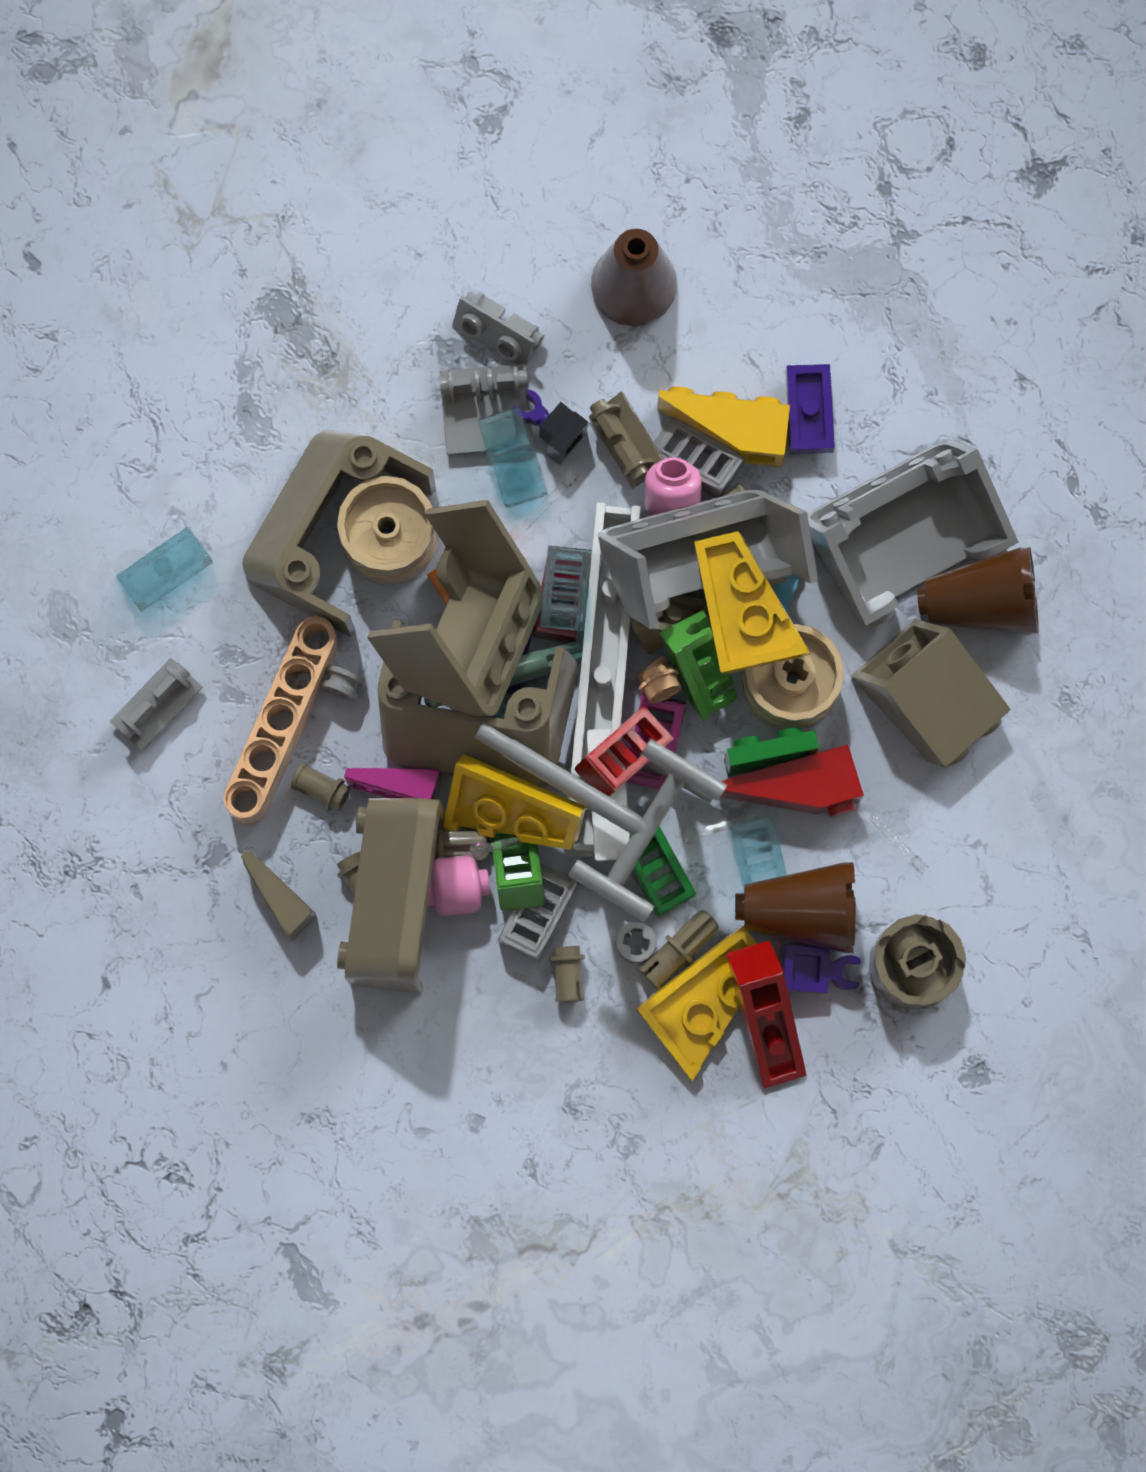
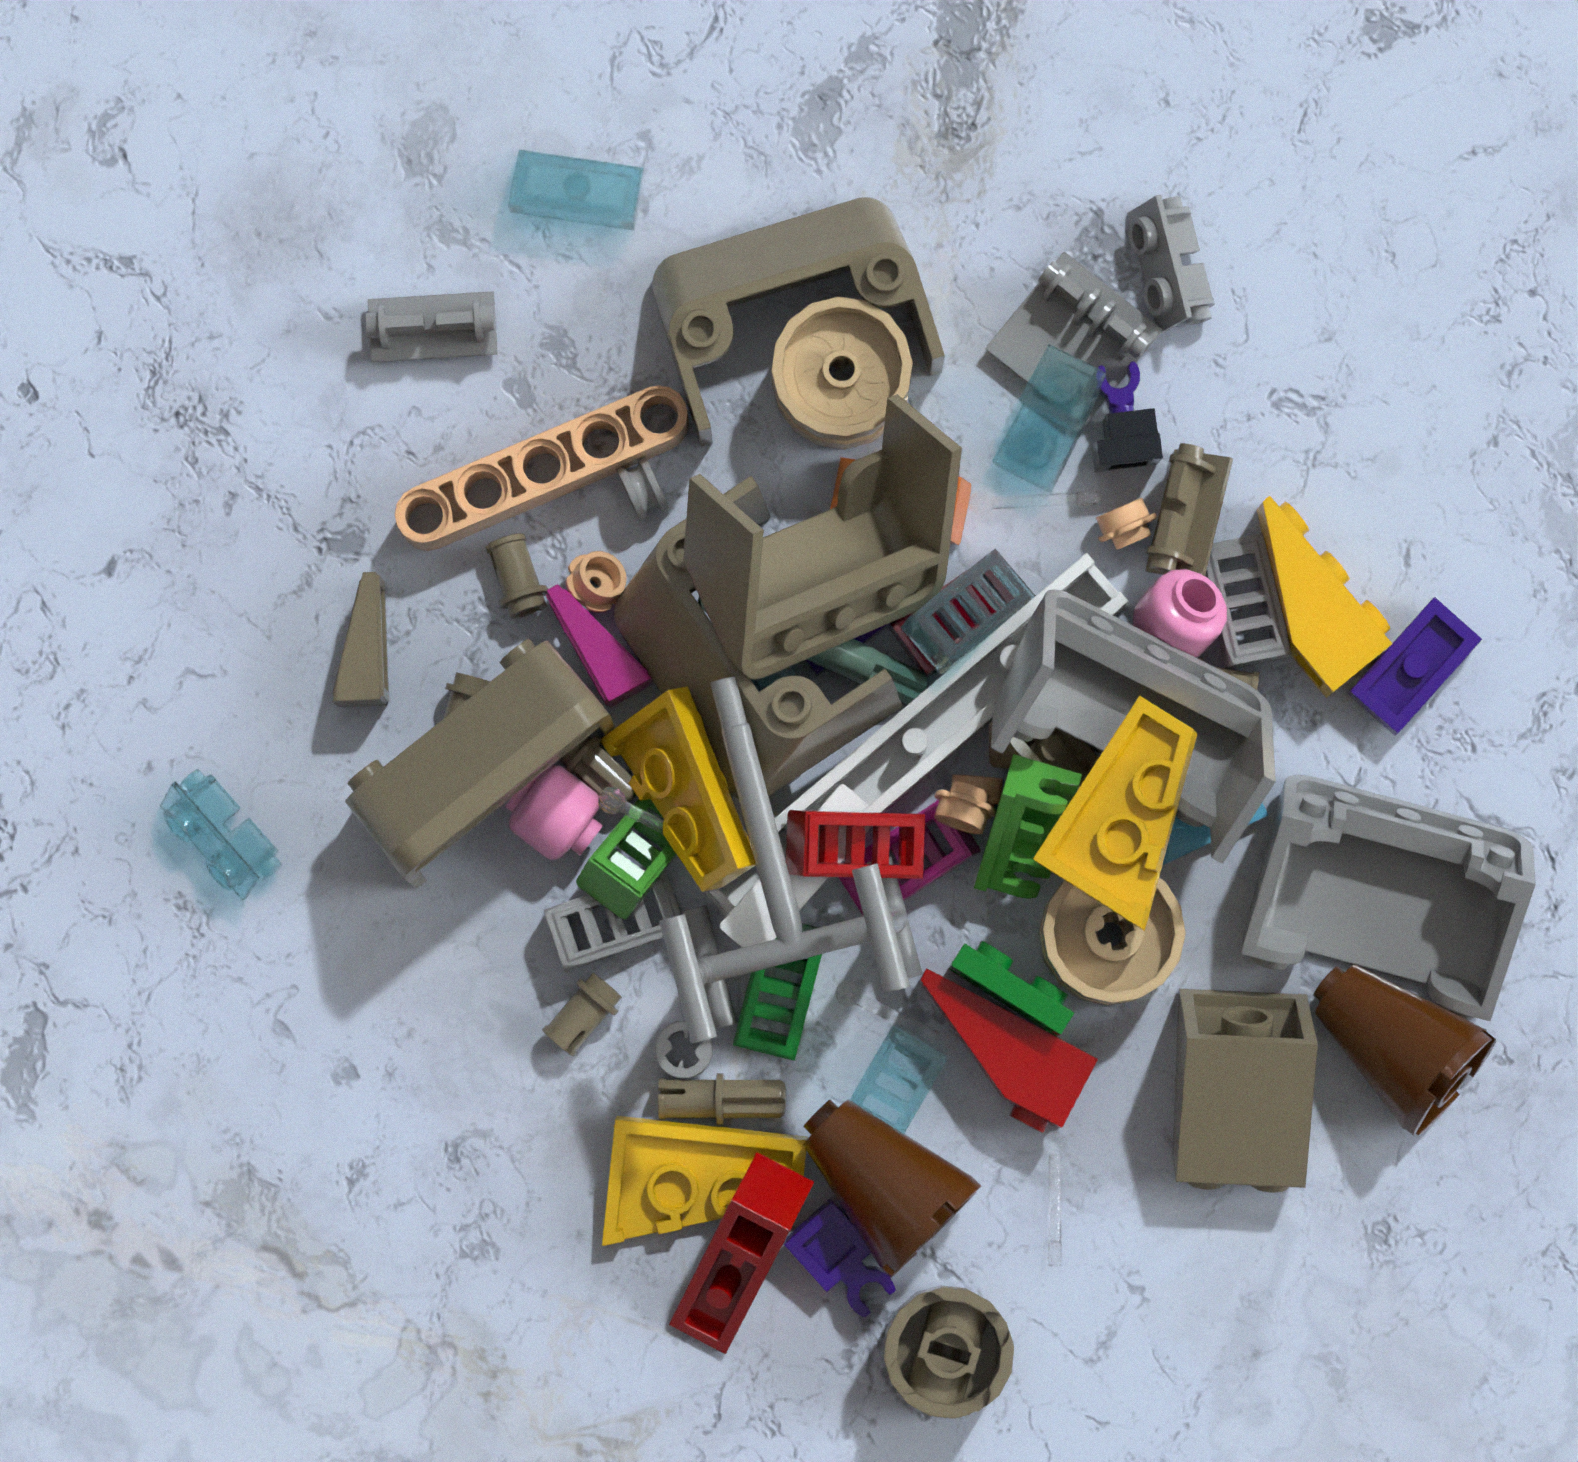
camera: 45 degrees right, 5 degrees up
(273, 1063) = (198, 814): none -> clear light blue hinge
(363, 750) = (605, 572): none -> light nougat plate
(600, 473) = (1126, 524): none -> light nougat plate
(634, 279) = (1363, 351): reddish brown cone -> none

